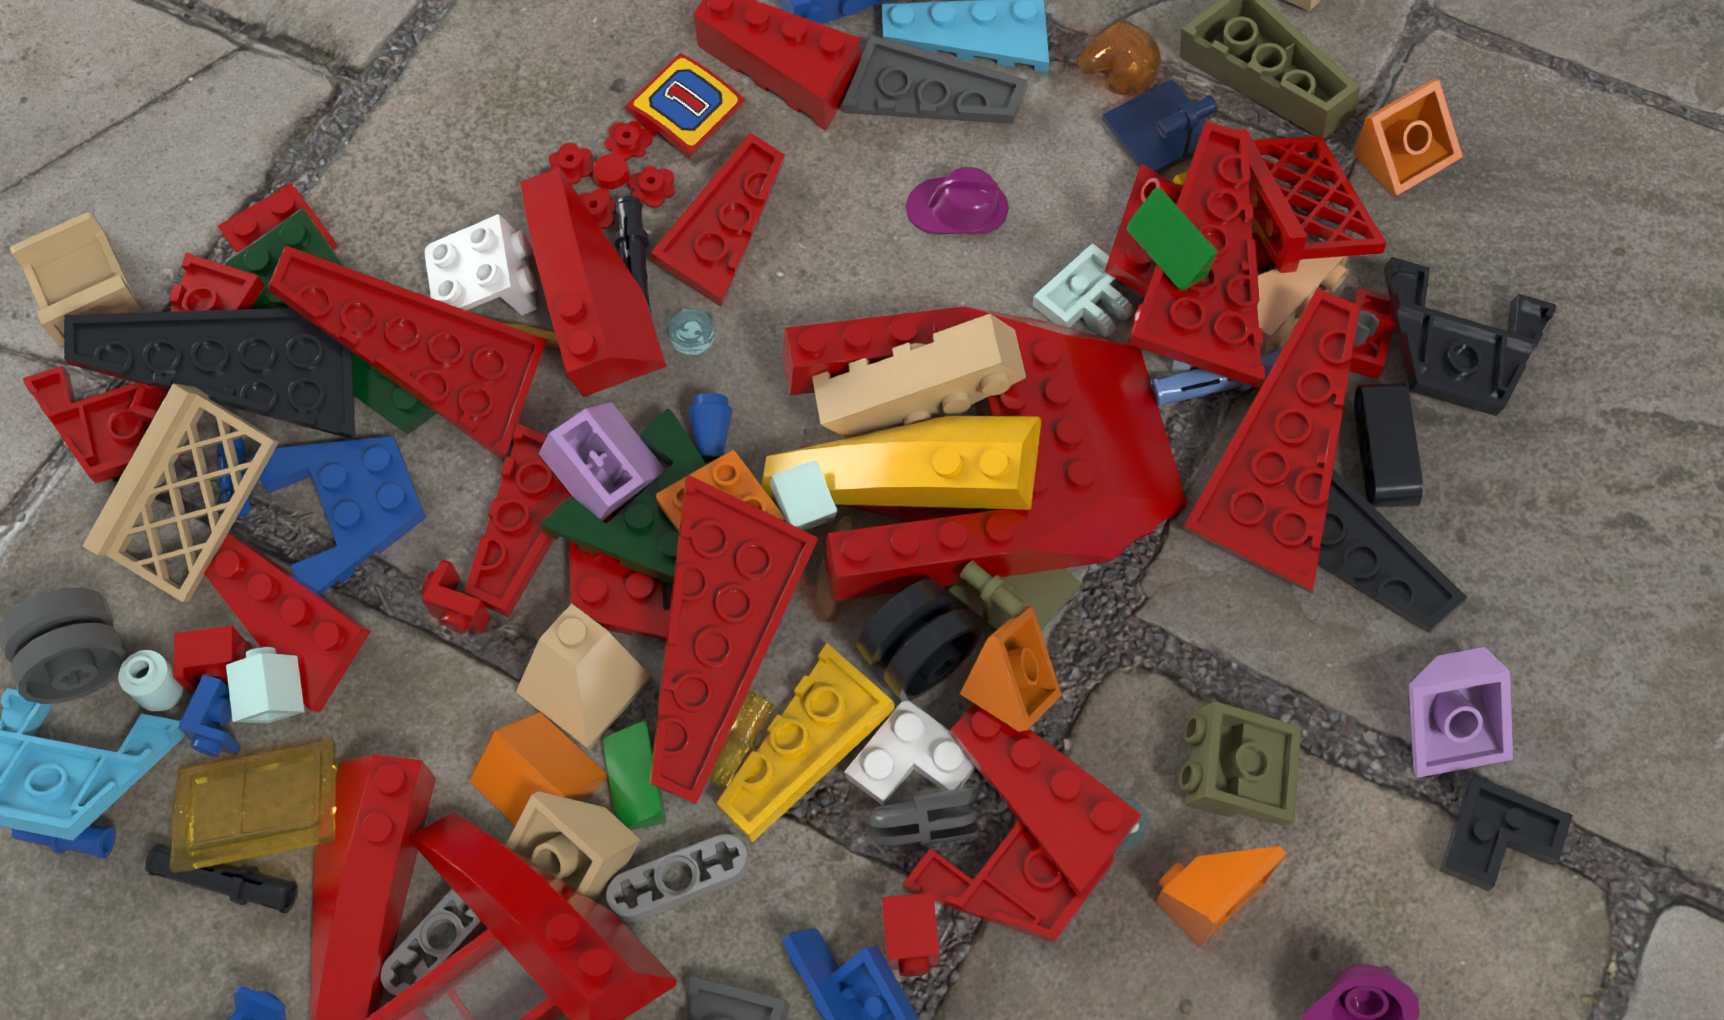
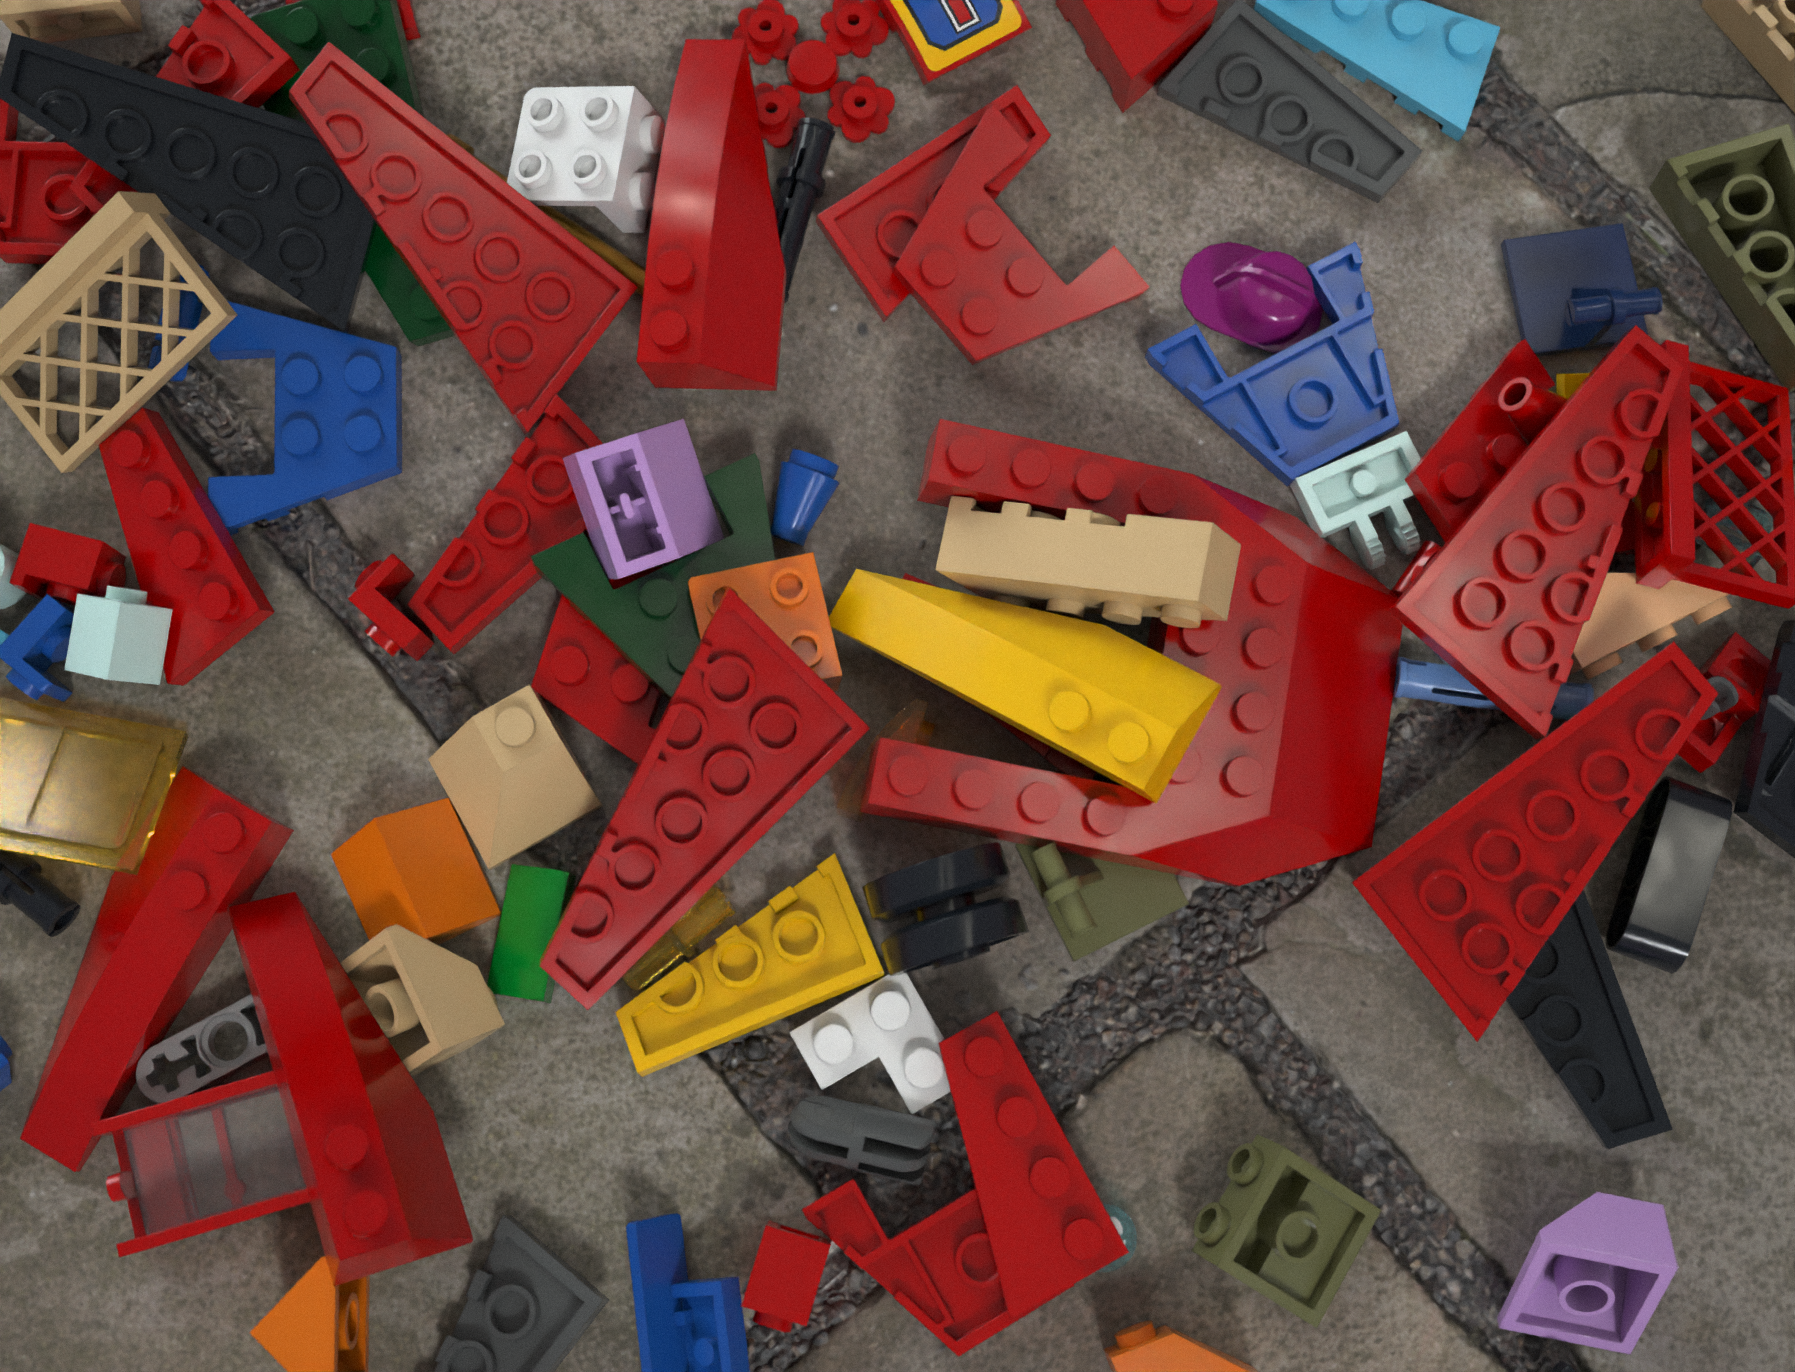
camera: 15 degrees right, 15 degrees up
(649, 906) = (488, 1066): light grey beam -> none
(691, 332) = (830, 345): clear light blue tile -> none
(776, 251) = (983, 274): none -> red wing
(803, 496) = (875, 659): light aqua panel -> none
(1014, 673) = (1047, 1009): orange slope -> none
(1017, 251) = (1305, 400): none -> blue wing
(1128, 53) = (1581, 167): clear orange helmet -> none
(1172, 240) = (1508, 494): green slope -> none

